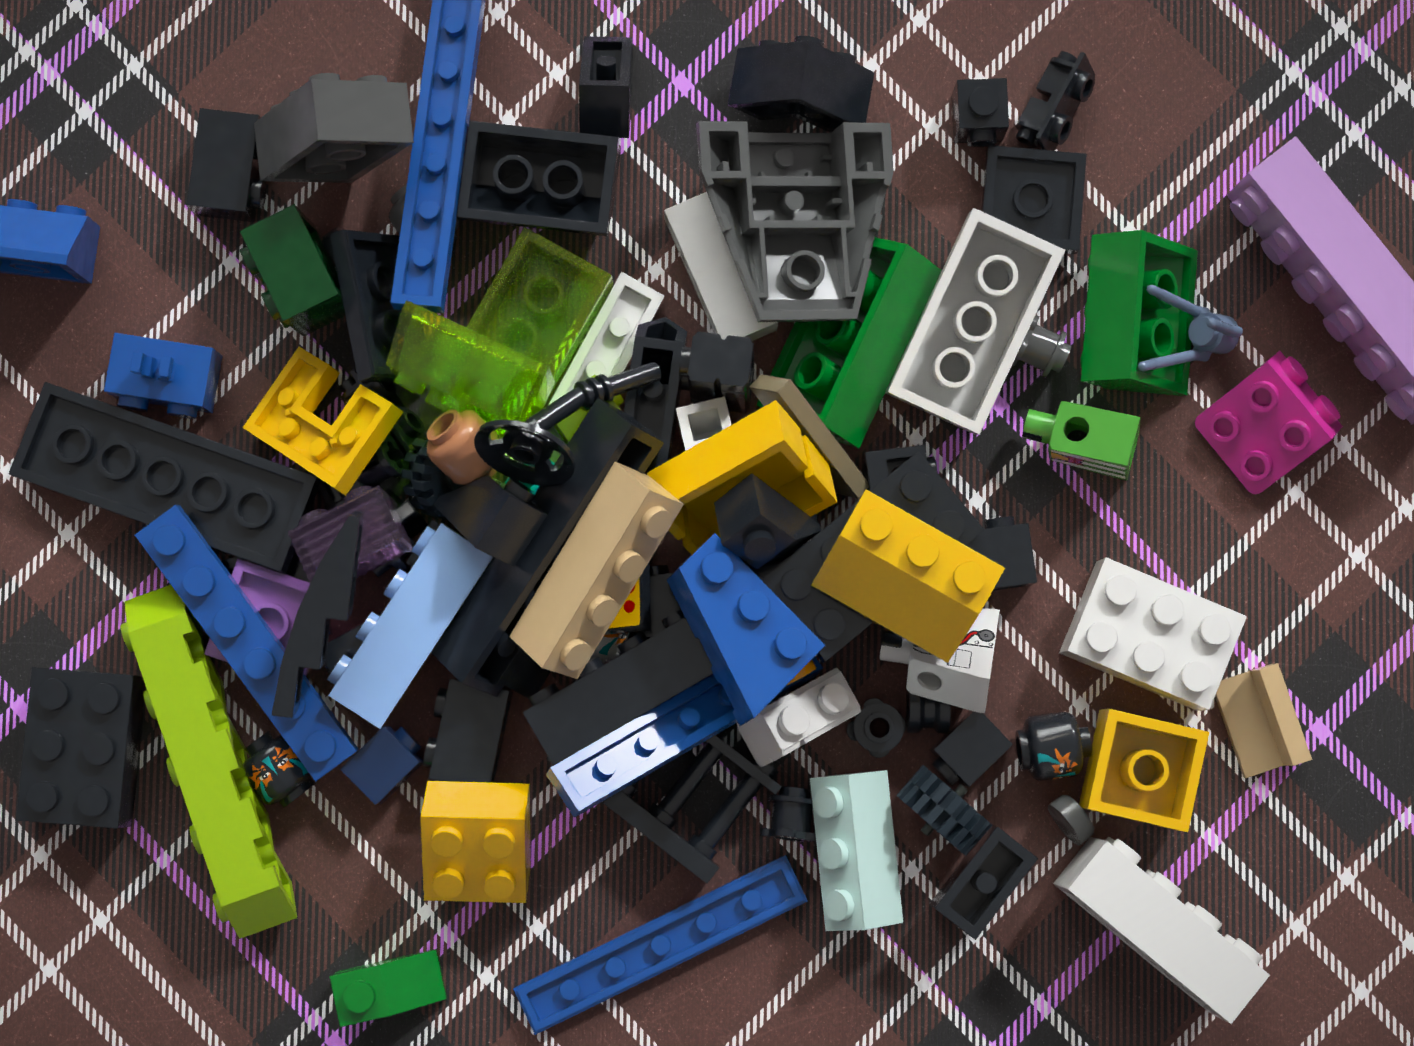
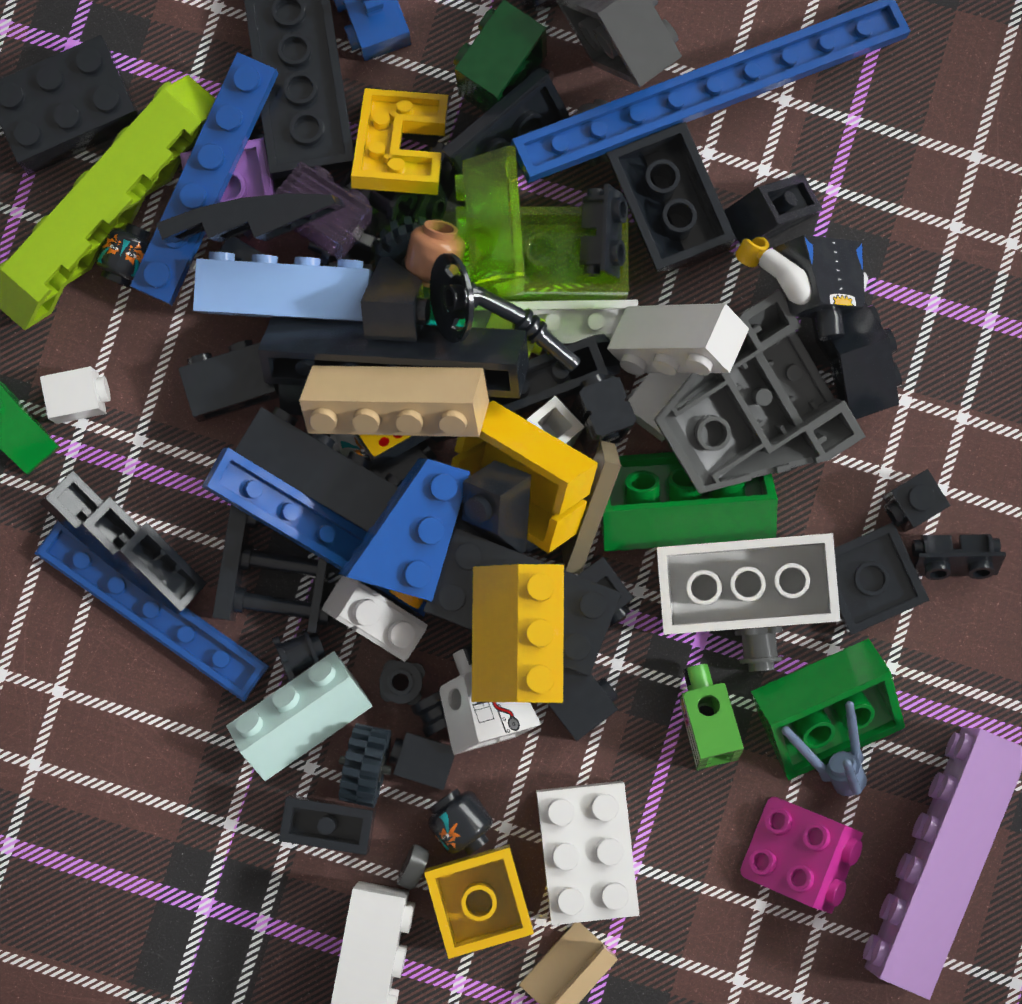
camera: 60 degrees right, 0 degrees up
(384, 763) = (172, 330): dark blue brick -> none
(393, 902) = (75, 394): none -> white brick
(476, 841) = (150, 428): yellow brick -> none
(556, 271) = (605, 212): none -> black hinge
(577, 937) = (124, 545): none -> black slope
(691, 251) = (678, 339): none -> white brick
(704, 77) = (818, 275): none -> black torso

